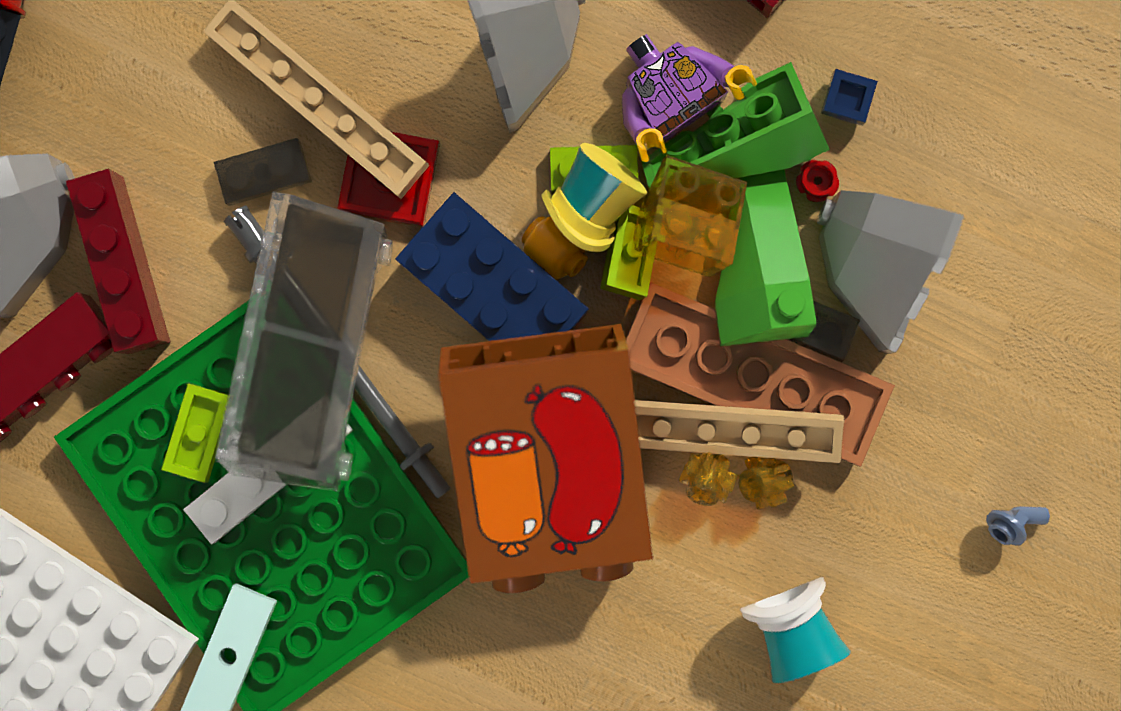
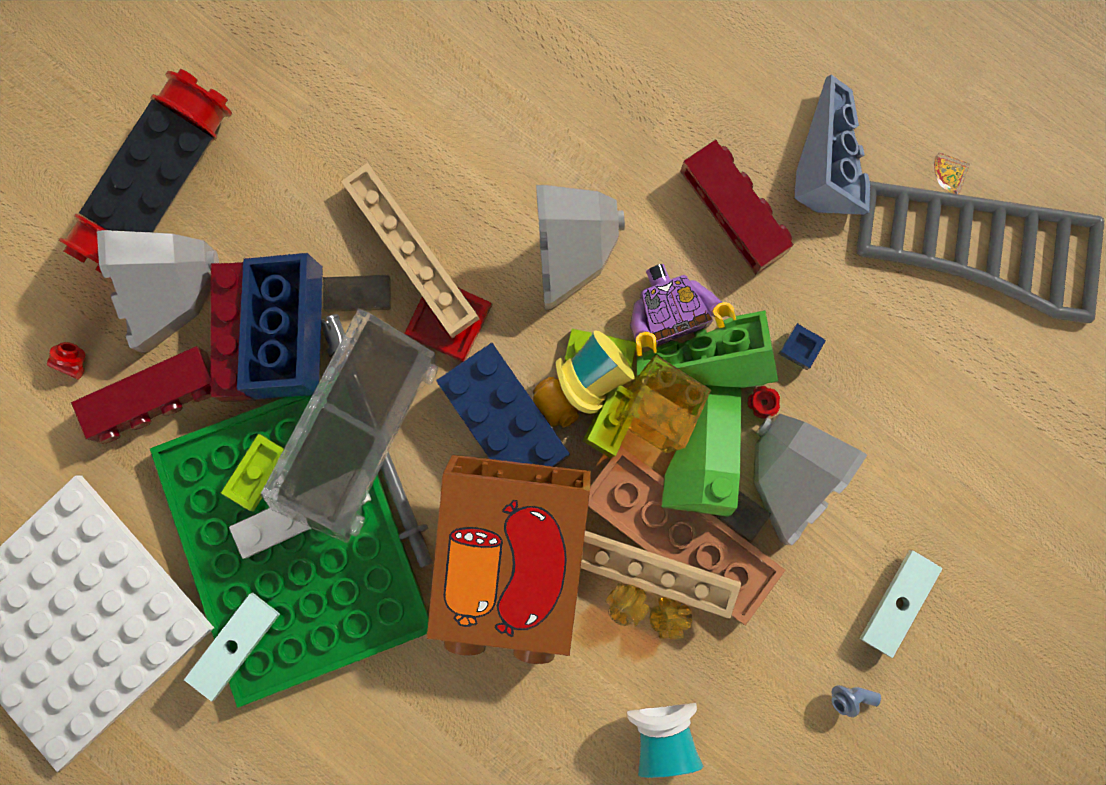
camera: 15 degrees right, 5 degrees down
(177, 239) = (280, 326): none -> dark blue brick
(1057, 363) = (912, 584): none -> light aqua tile

